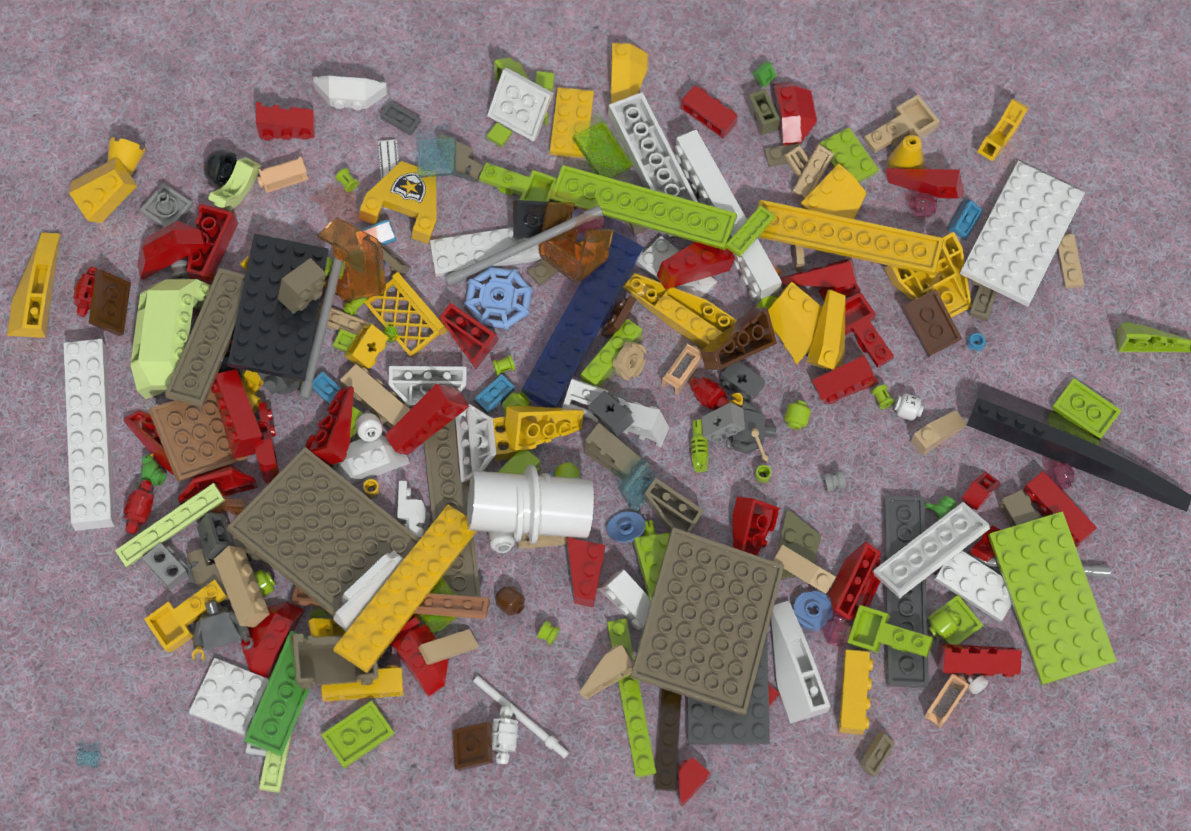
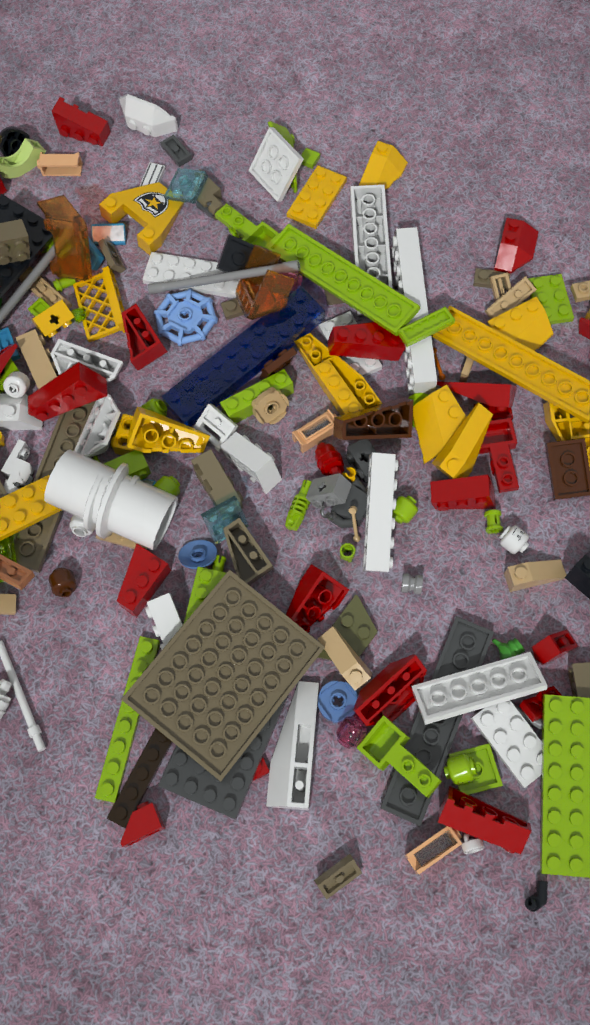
camera: 30 degrees right, 0 degrees up
(345, 174) = (107, 185): lime bush -> none
(494, 394) = (140, 395): dark azure plate -> none
(499, 135) = (251, 188): lime tile -> none
(503, 365) = (160, 373): lime bush -> none
(548, 633) = (81, 625): lime wheel -> none
(602, 150) = (330, 224): clear neon green plate -> none
(610, 669) = (112, 684): tan slope -> none
(611, 413) = (227, 446): dark grey brick -> none
(709, 111) = (439, 222): red brick -> none
(763, 112) = (487, 236): olive brick -> none
(764, 74) = (502, 207): bright green tile -> none
(779, 426) = (379, 512): none -> white brick
(854, 692) = (342, 802): yellow brick -> none
(1048, 705) = (539, 898): none -> black arm

